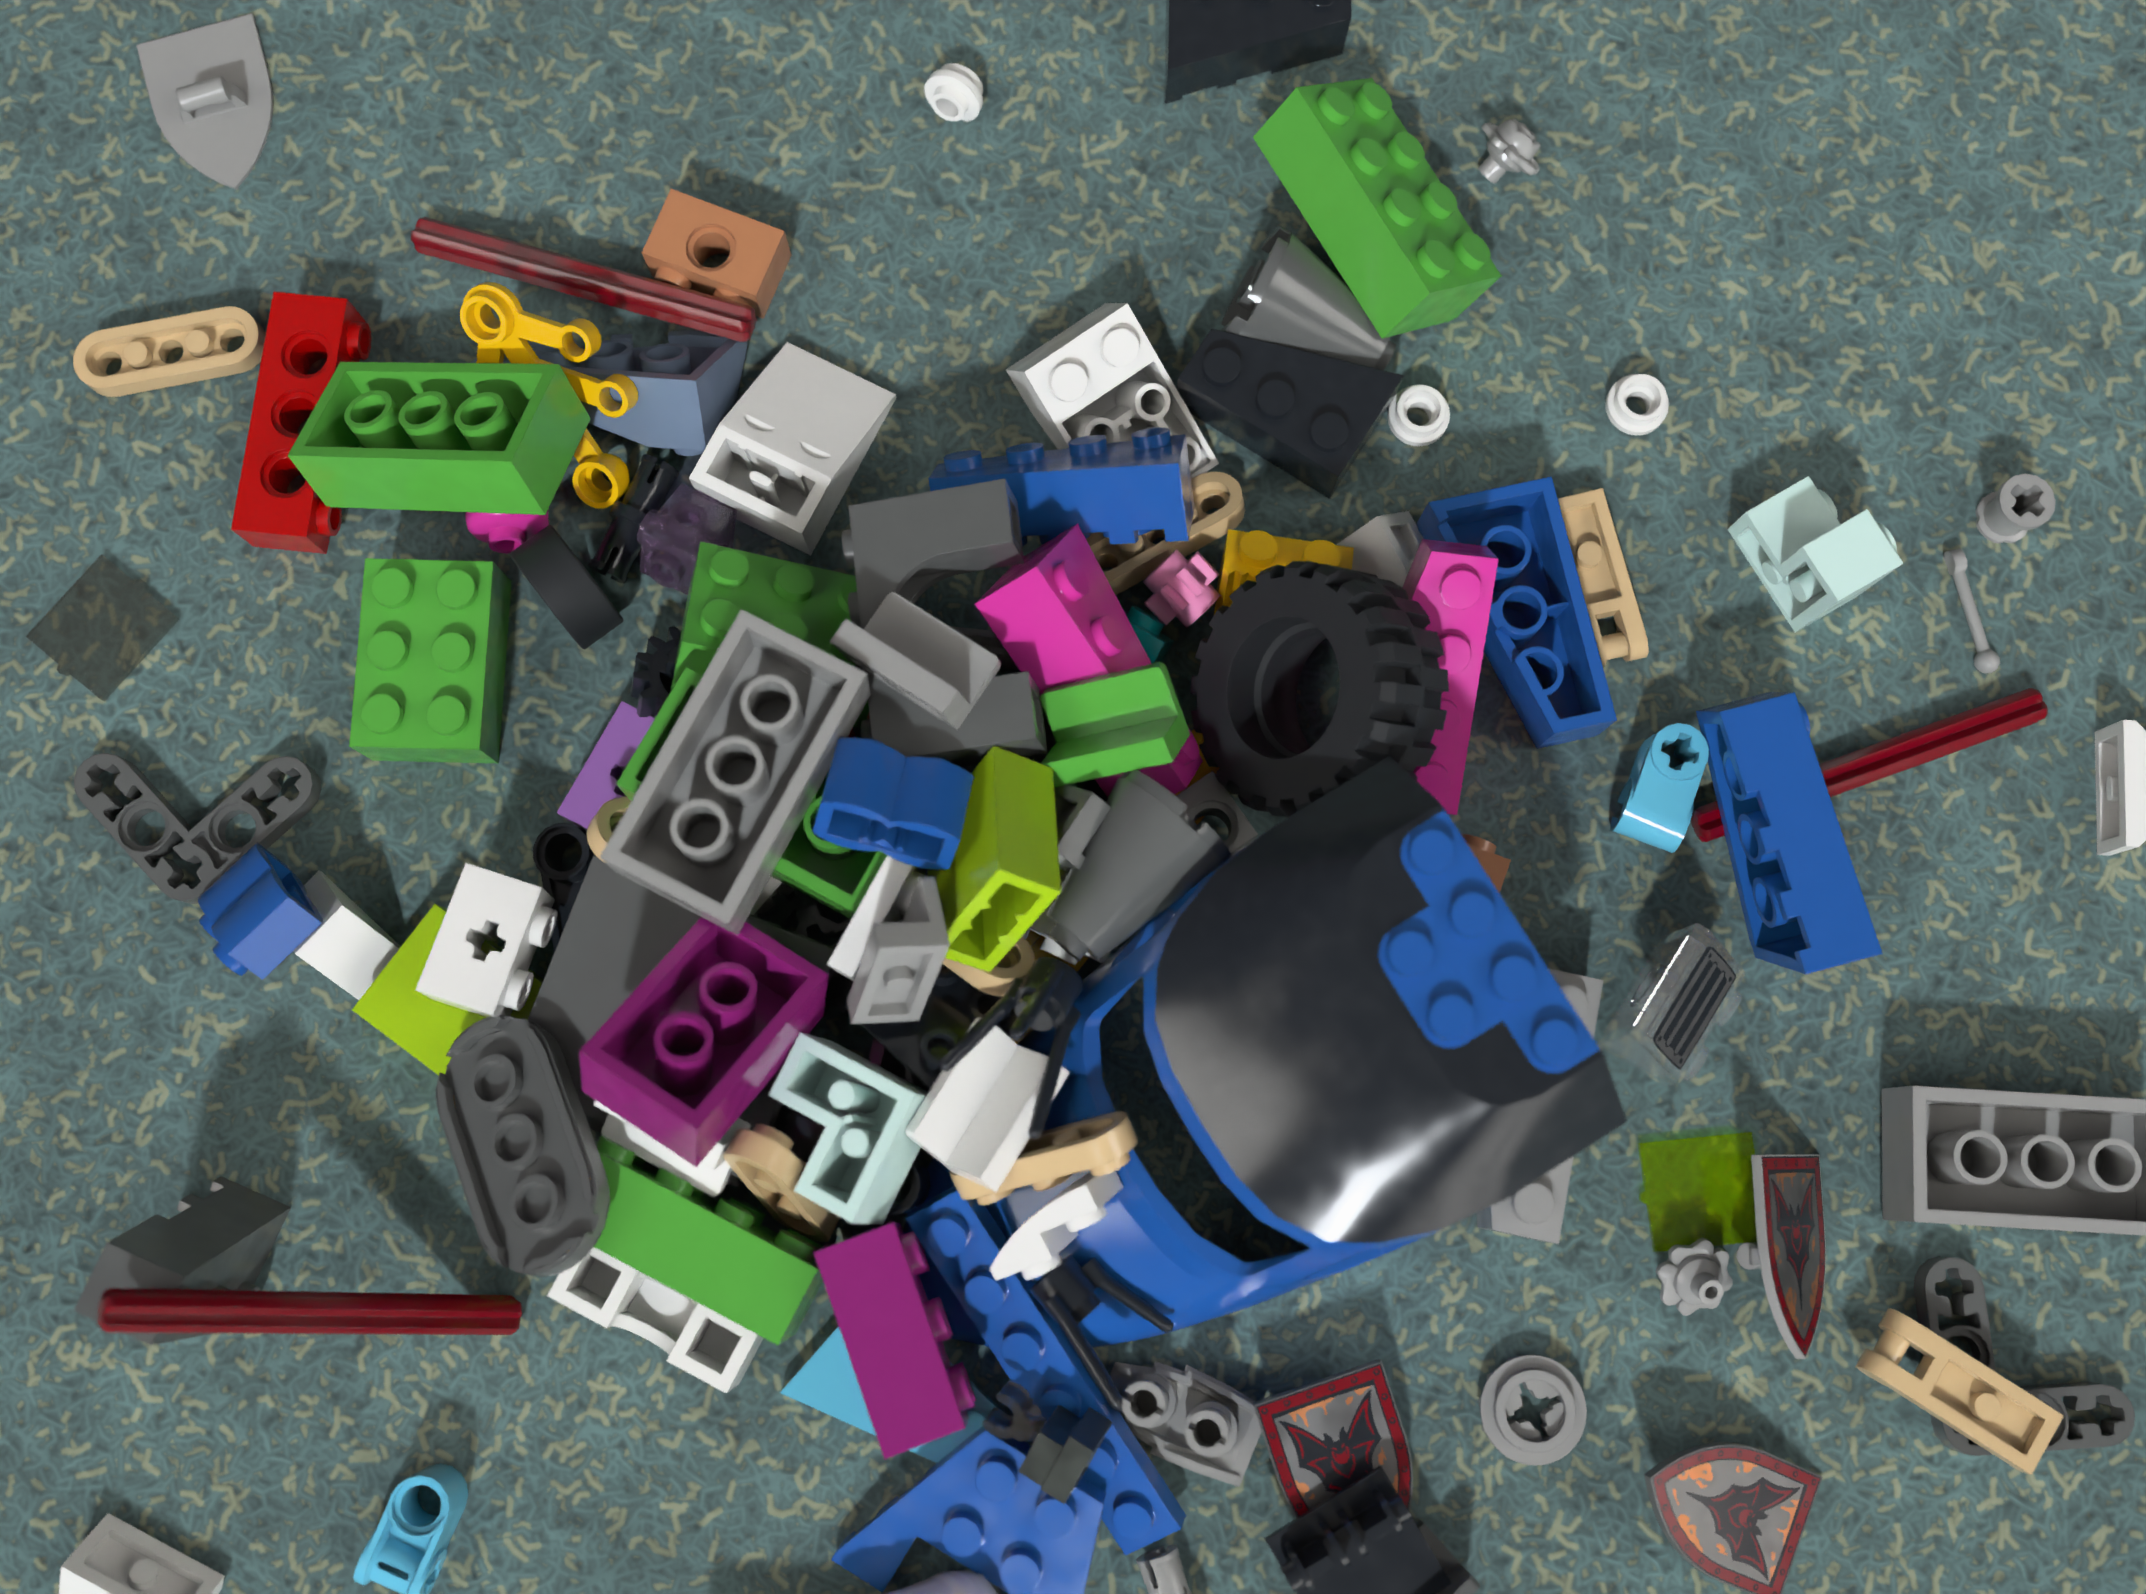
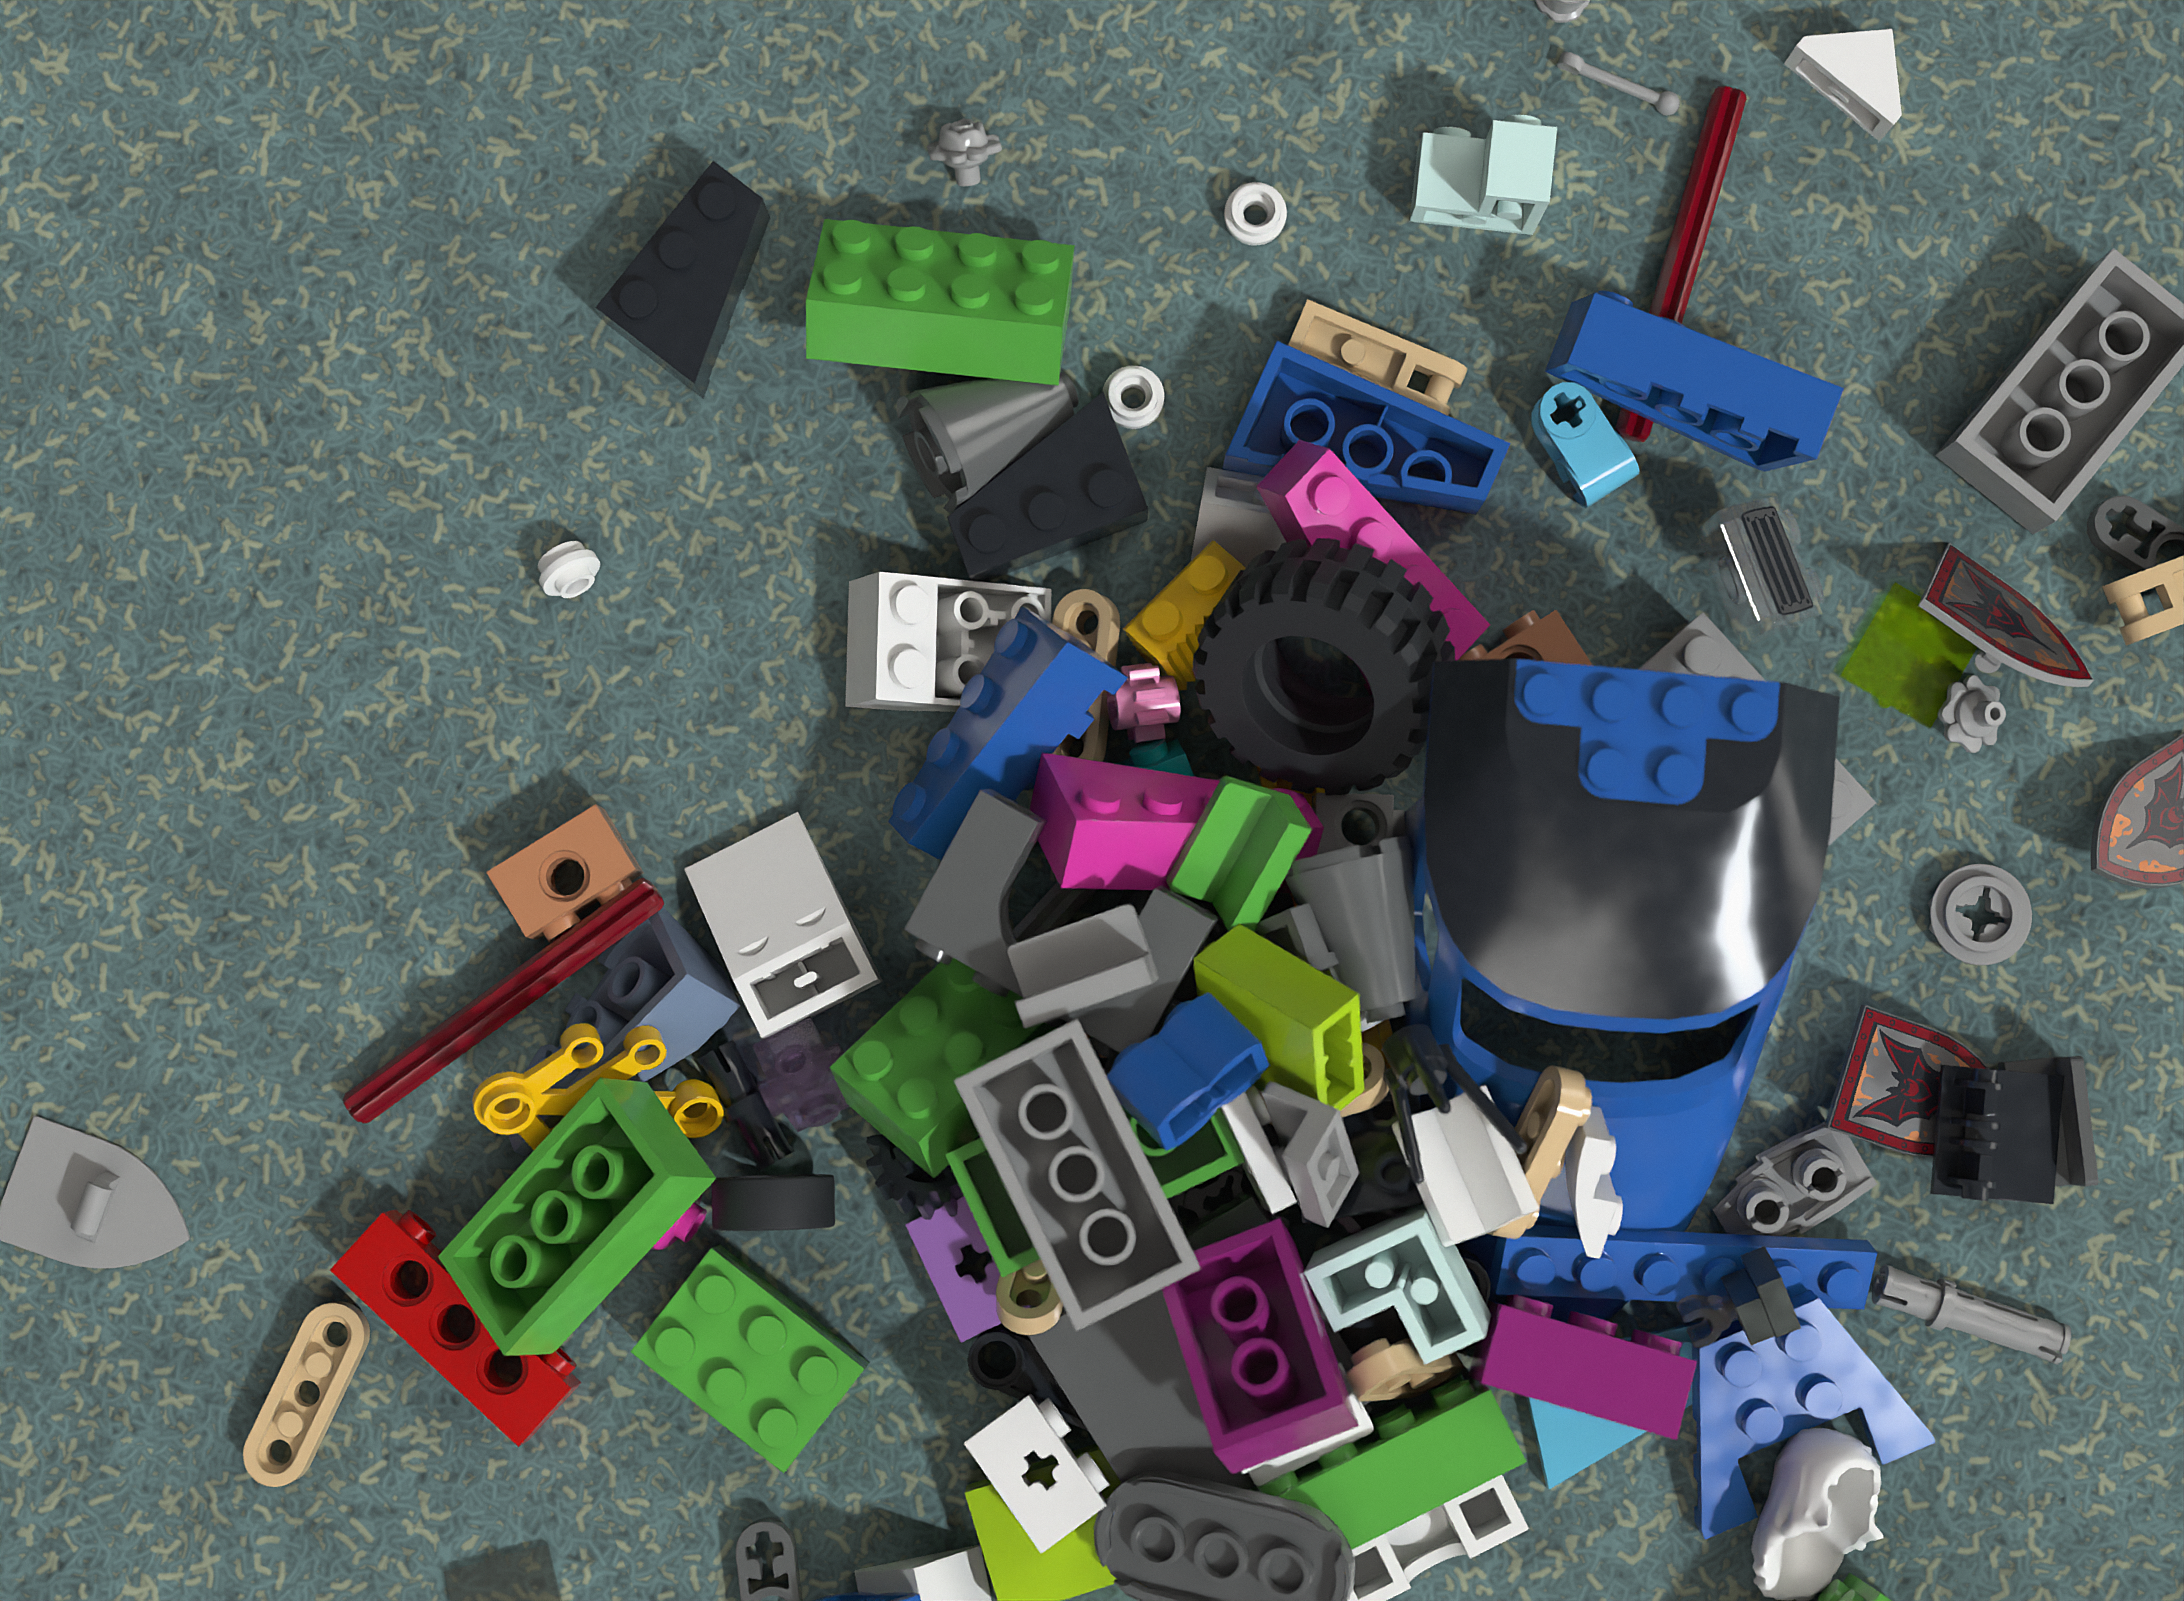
camera: 50 degrees left, 5 degrees up
(1069, 1298) = (1653, 1210): black plant -> none

